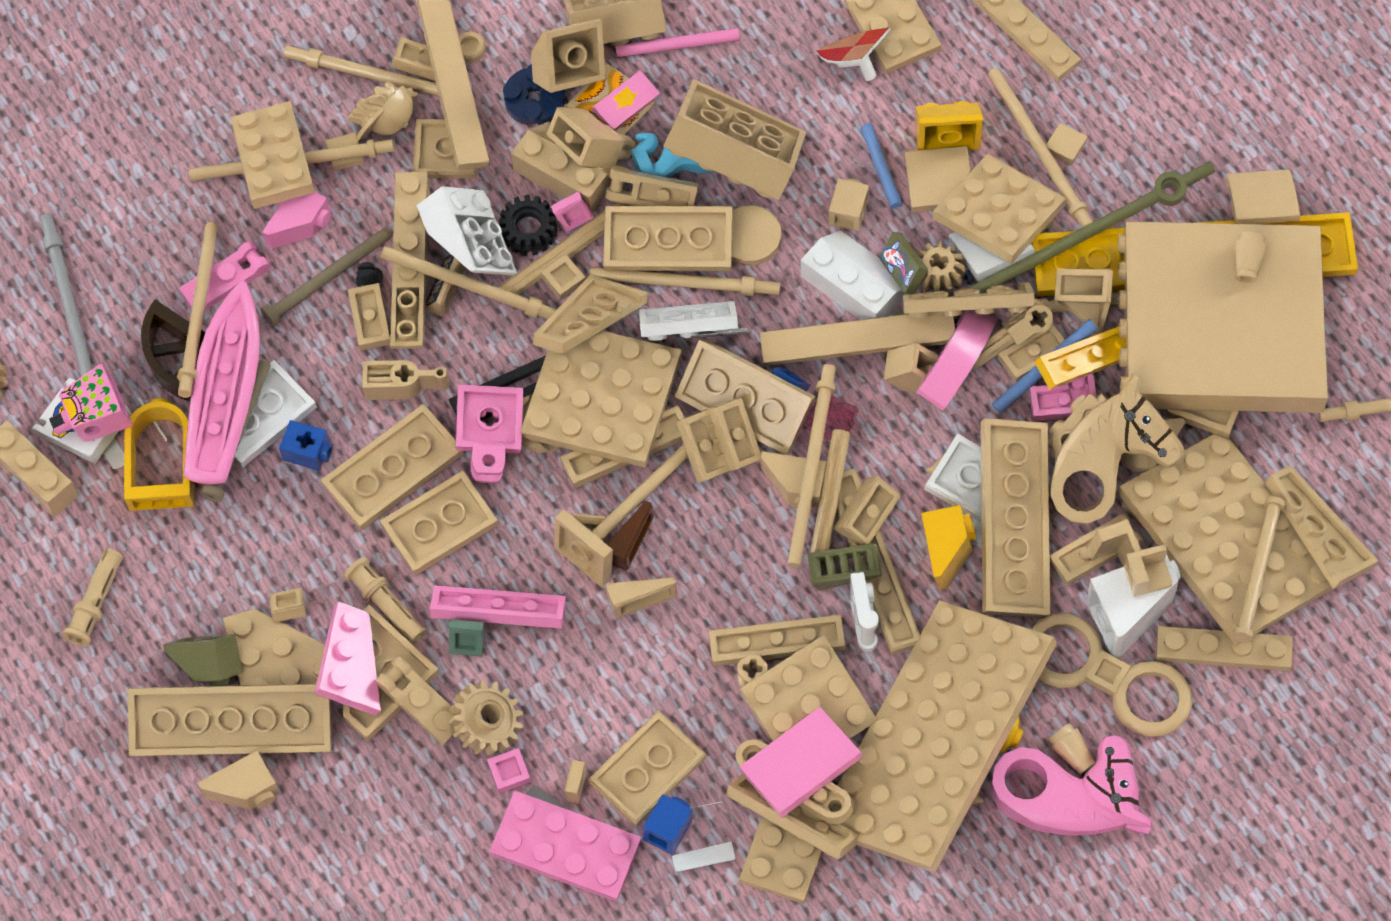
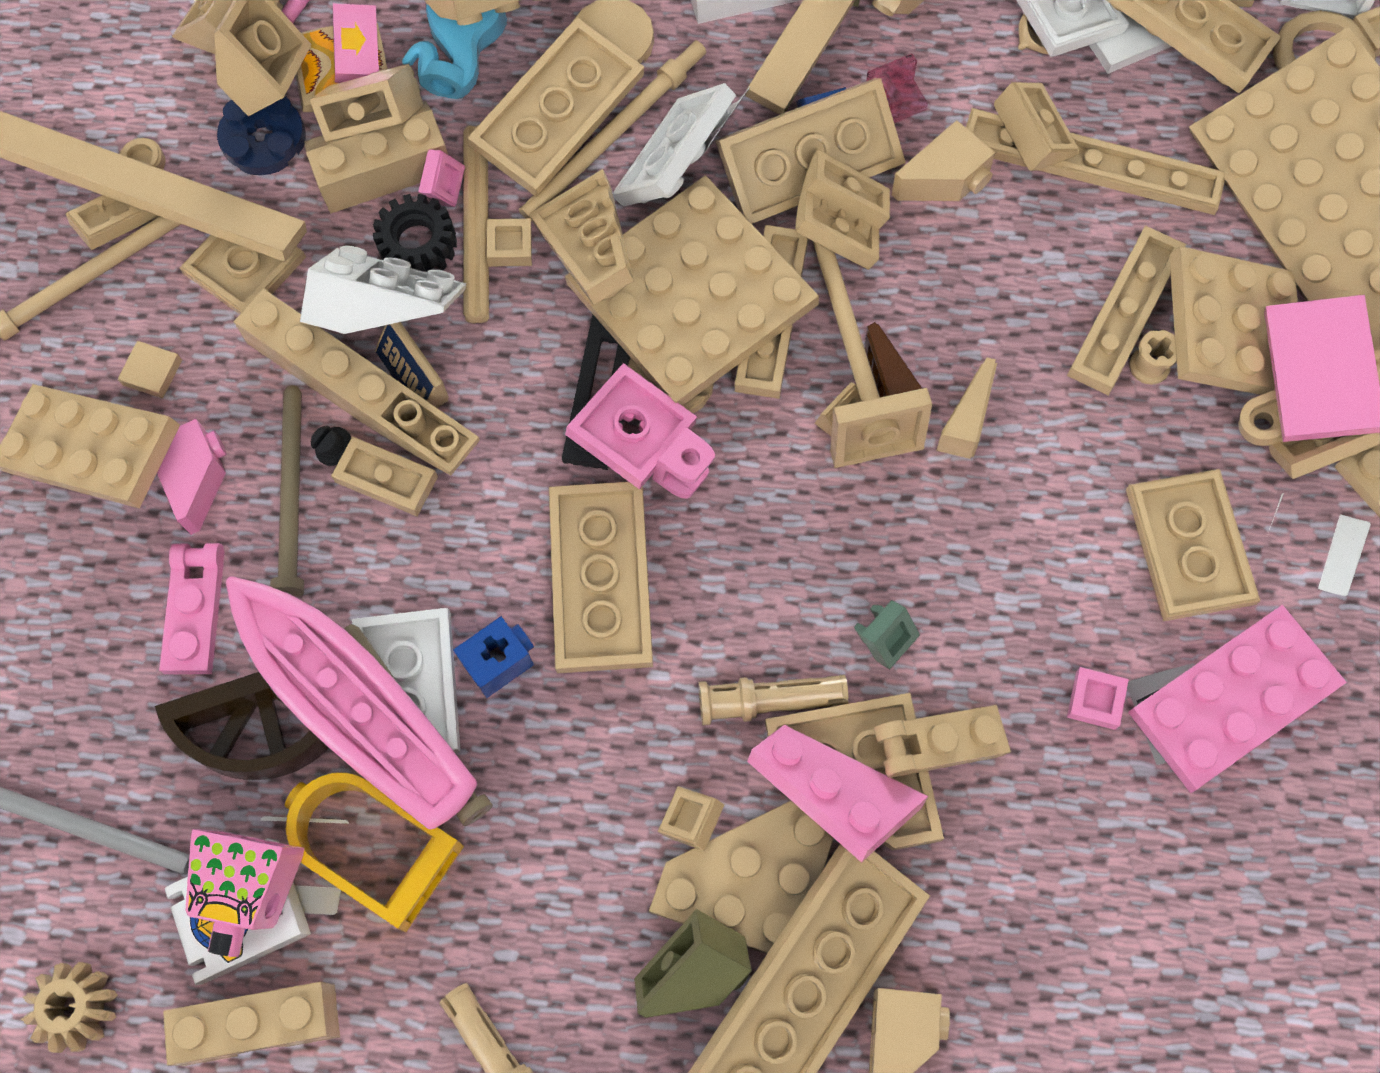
camera: 55 degrees left, 5 degrees up
(187, 372) = (296, 729): tan bar -> none
(369, 149) = (175, 334): tan bar -> none
(384, 111) = (143, 289): tan hair -> none
(386, 379) = (481, 512): tan piece -> none
(439, 523) = (713, 571): tan plate -> none
(497, 707) = (1019, 680): tan gear -> none
(498, 606) = (874, 574): bright pink plate -> none
(532, 307) = (517, 297): tan bar -> none
(575, 781) = (1166, 631): tan tile -> none
(649, 189) = (481, 87): tan plate -> none
(667, 823) = (1289, 563): blue brick -> none
(825, 388) = (873, 63): tan bar -> none
(830, 490) = (1006, 159): tan axle -> none
(831, 556) = (1071, 216): olive slope -> none
(863, 612) = (1155, 188): white plate -> none
(948, 541) = (1151, 65): yellow slope -> none

